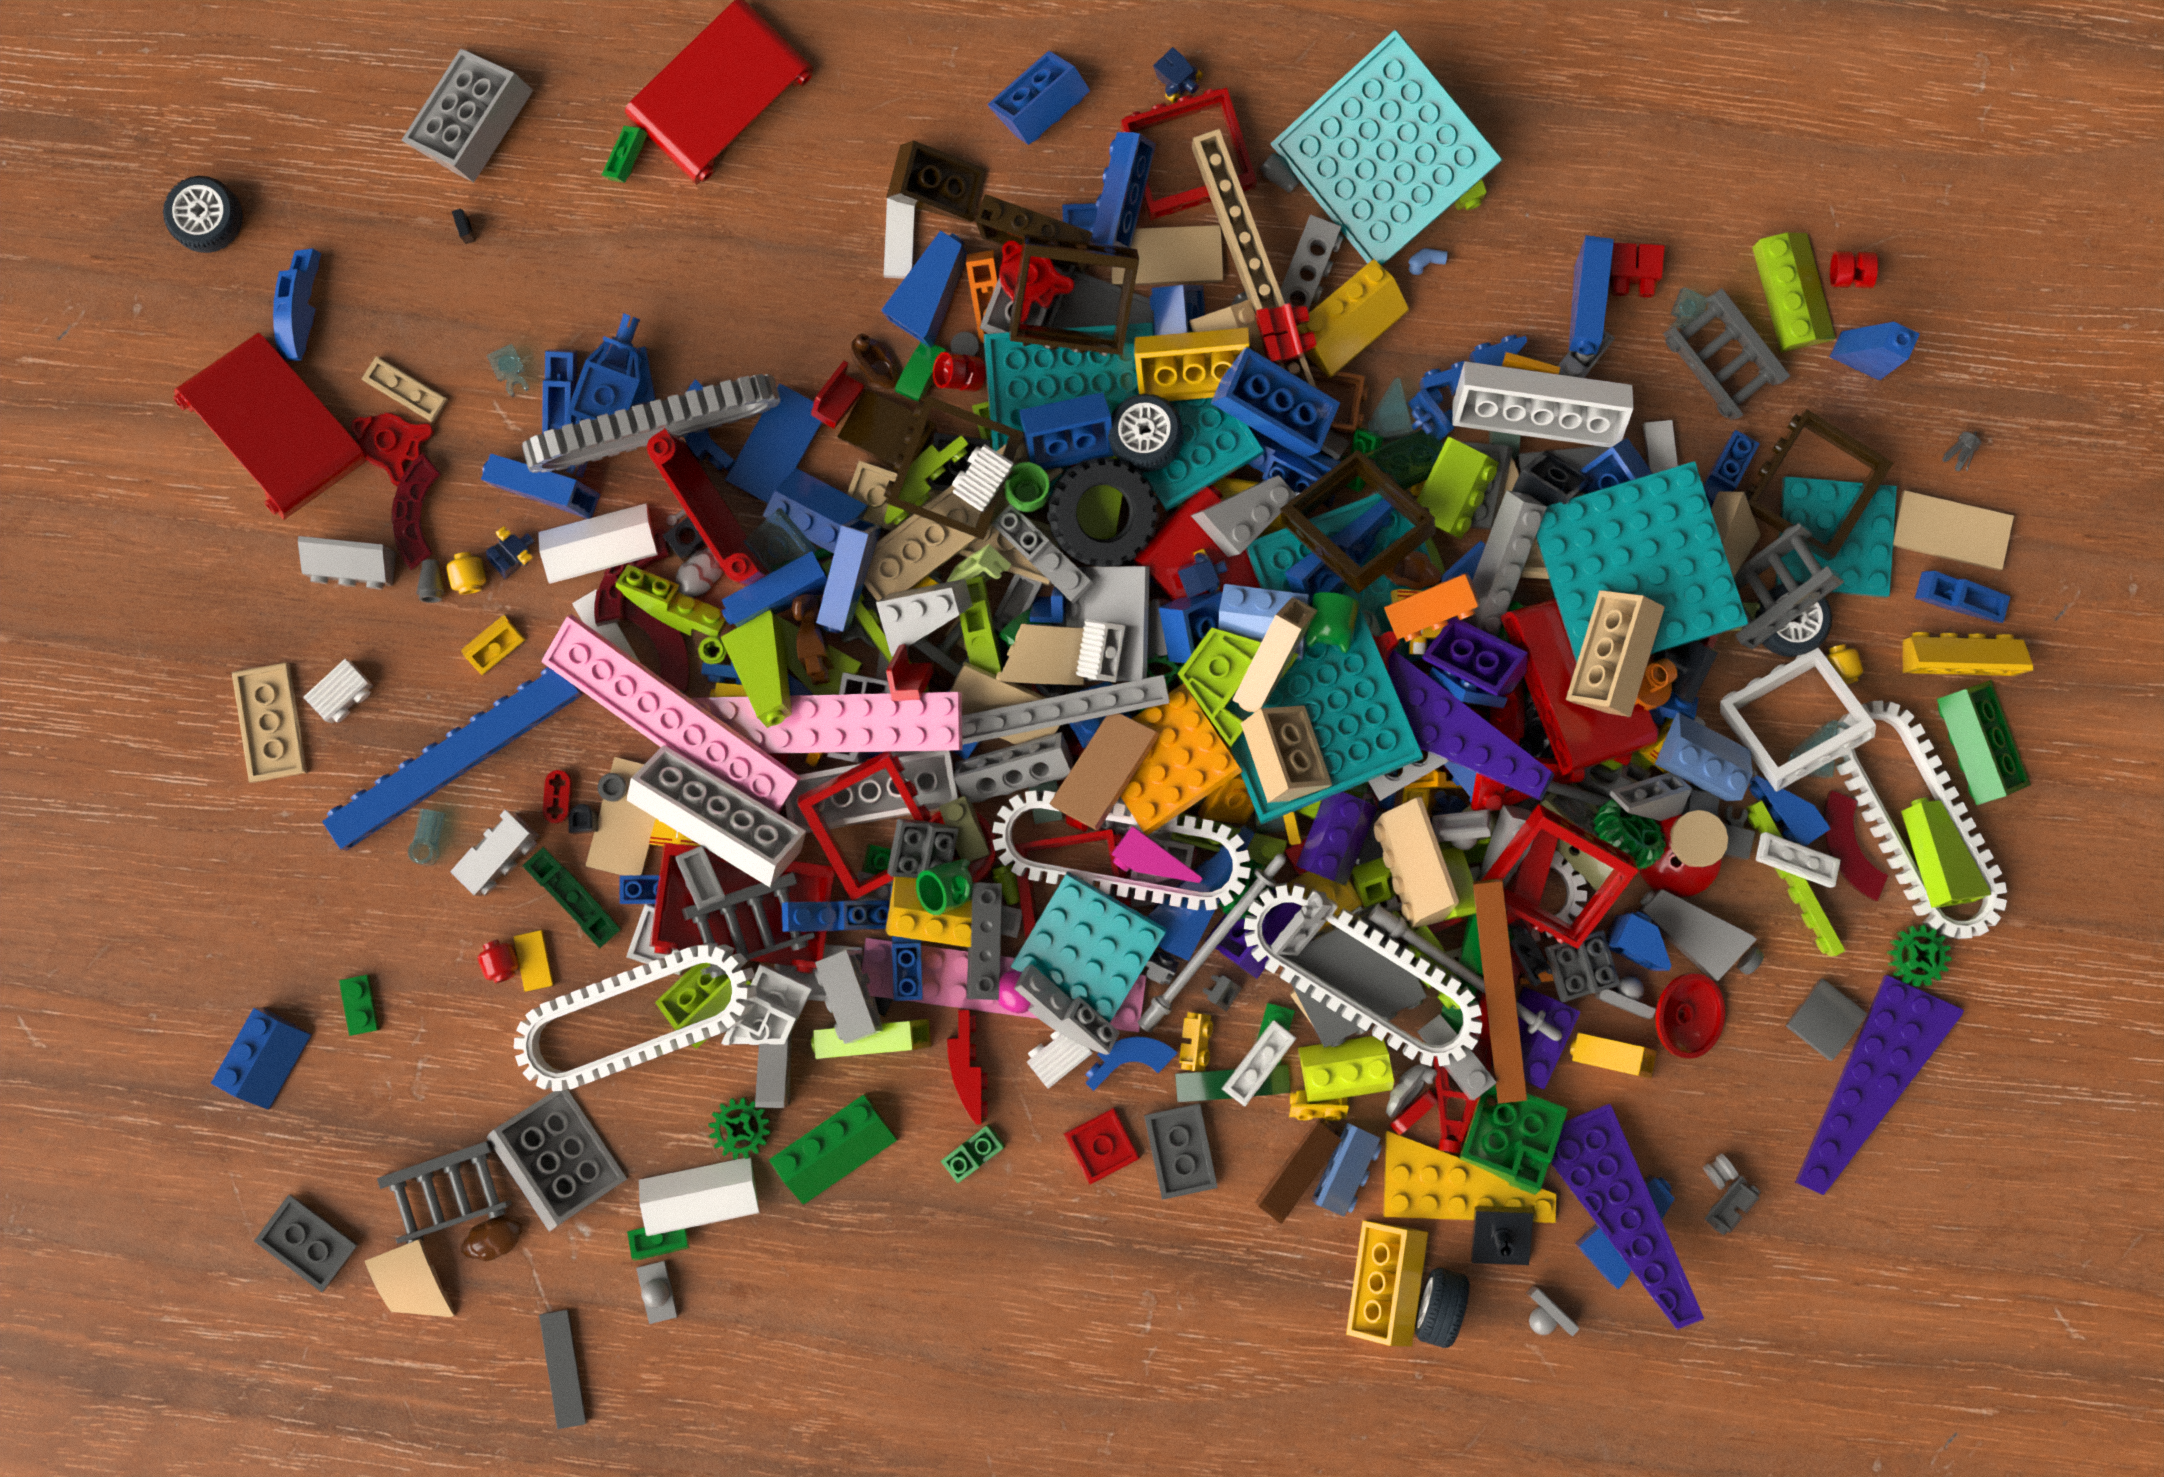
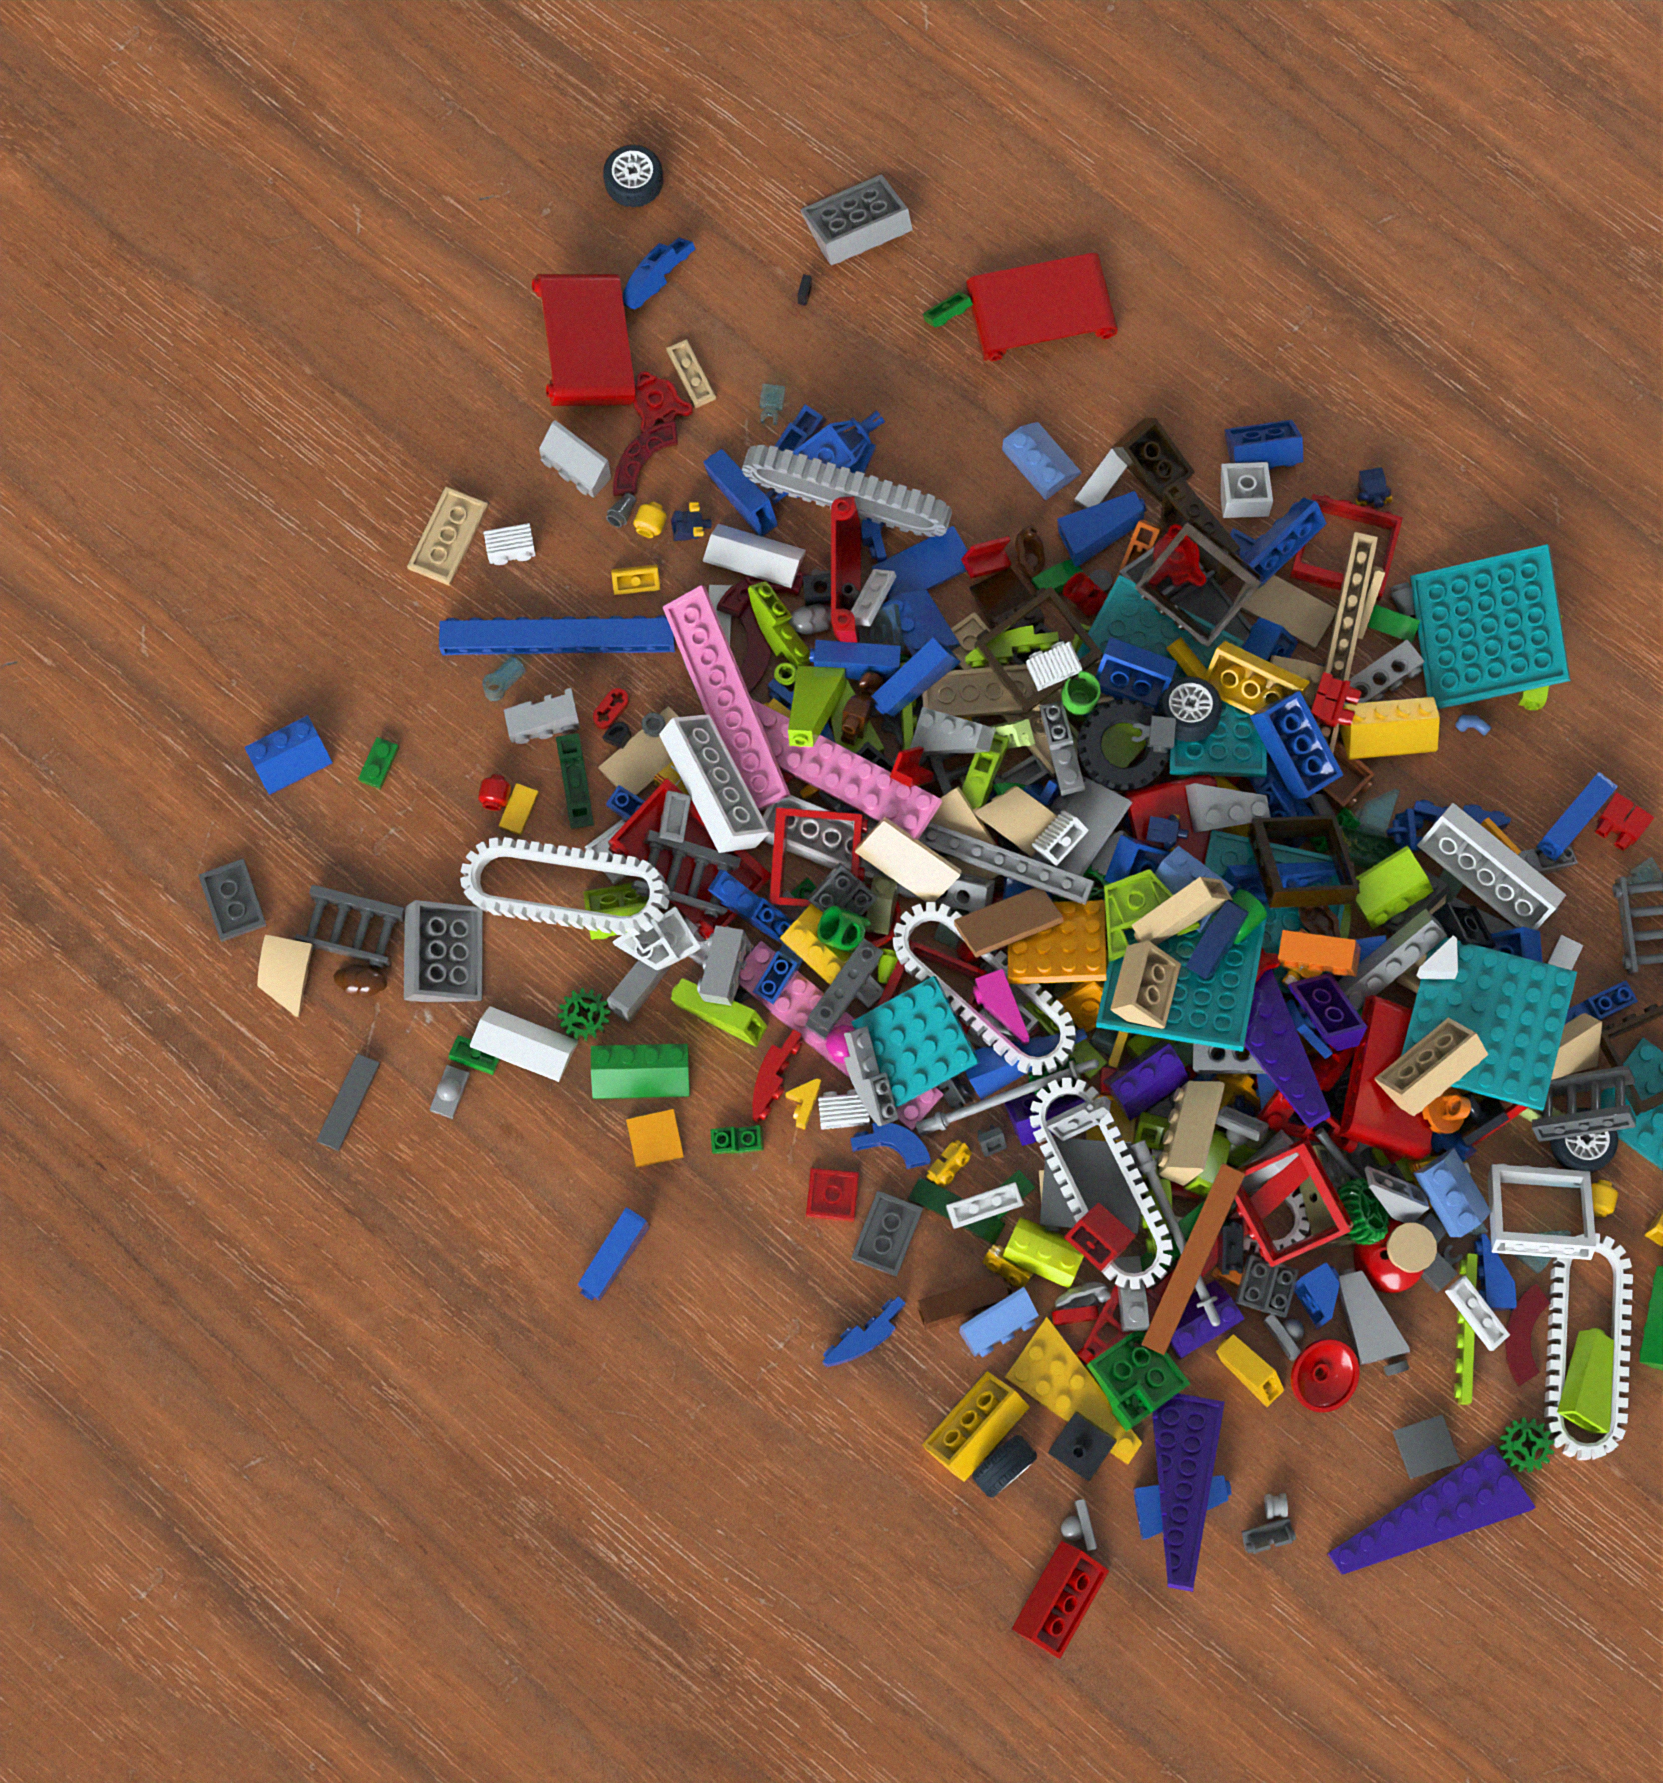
camera: 35 degrees right, 10 degrees down
(727, 527) = (849, 595): none -> dark grey cone
(747, 515) = (872, 596): none -> white tile
(822, 255) = (1040, 459): none -> medium blue slope
(891, 1204) = (655, 1138): none -> light orange tile
(928, 1351) = (613, 1254): none -> blue slope
(964, 773) = (907, 861): none -> tile
(1015, 1065) = (807, 1096): none -> yellow slope
(1051, 157) = (1245, 490): none -> white slope
(1109, 380) = (1186, 659): none -> yellow tile
(1135, 482) = (1159, 733): none -> dark grey brick
(1223, 1276) = (858, 1342): none -> blue slope
(1245, 177) = (1375, 581): none -> tan tile
(1283, 205) = (1393, 623): none -> green slope
(1328, 661) = (1217, 939): none -> dark blue slope
(1399, 1034) = (1100, 1237): none -> red slope
(1561, 538) = (1442, 963): none -> white slope
(1574, 1397) = (1060, 1599): none -> red slope

